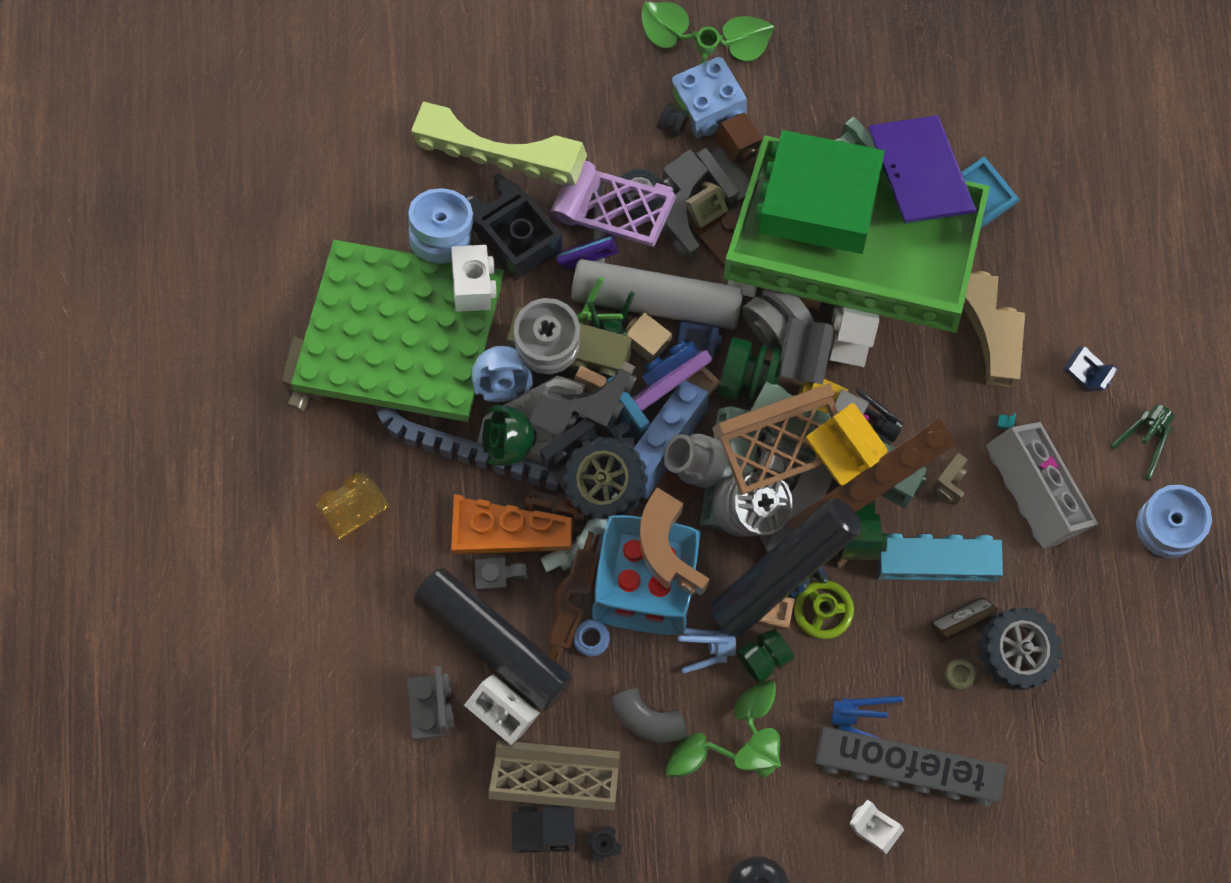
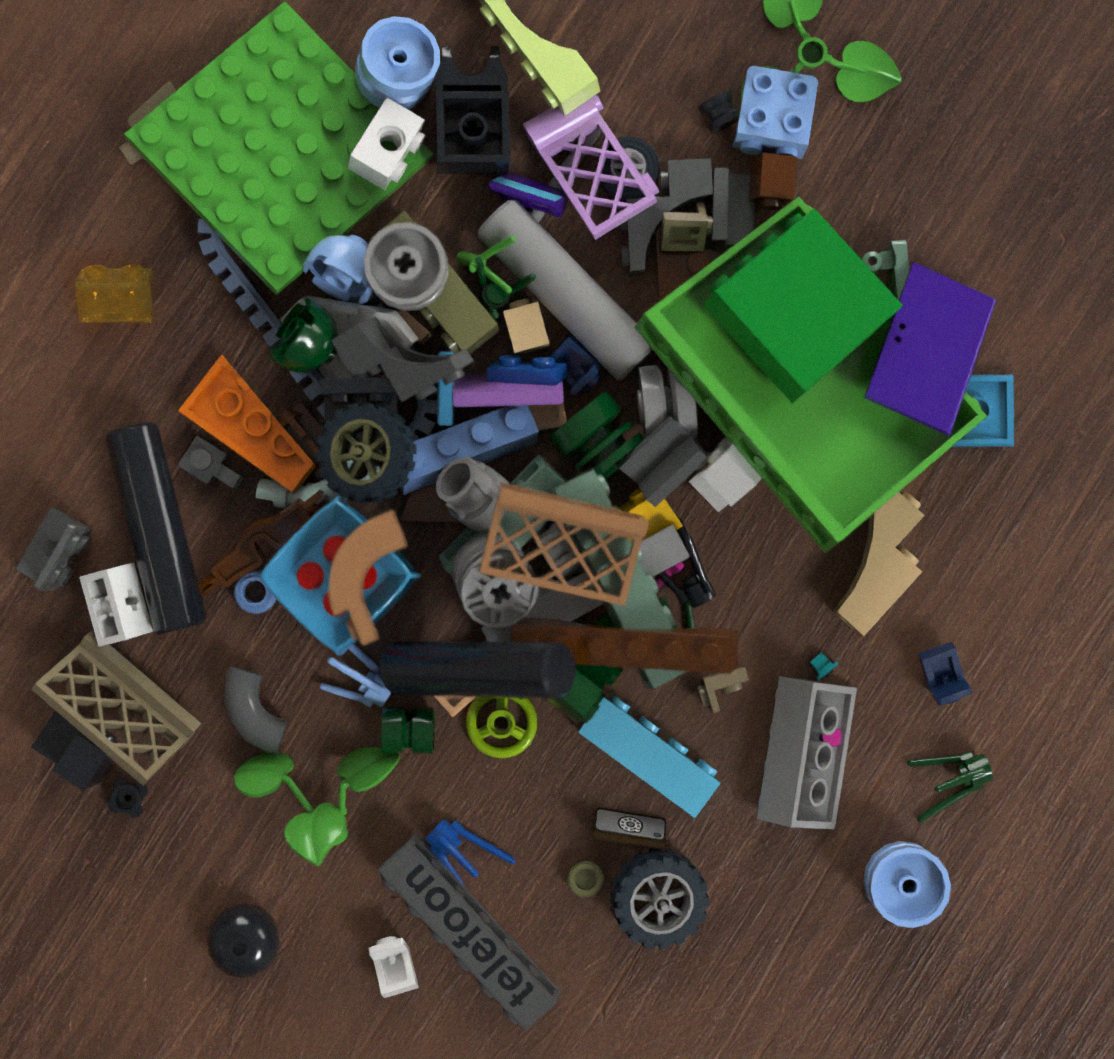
camera: 35 degrees right, 15 degrees up
(589, 378) = (427, 336): light nougat tile -> none
(847, 444) = (621, 595): yellow bracket -> none

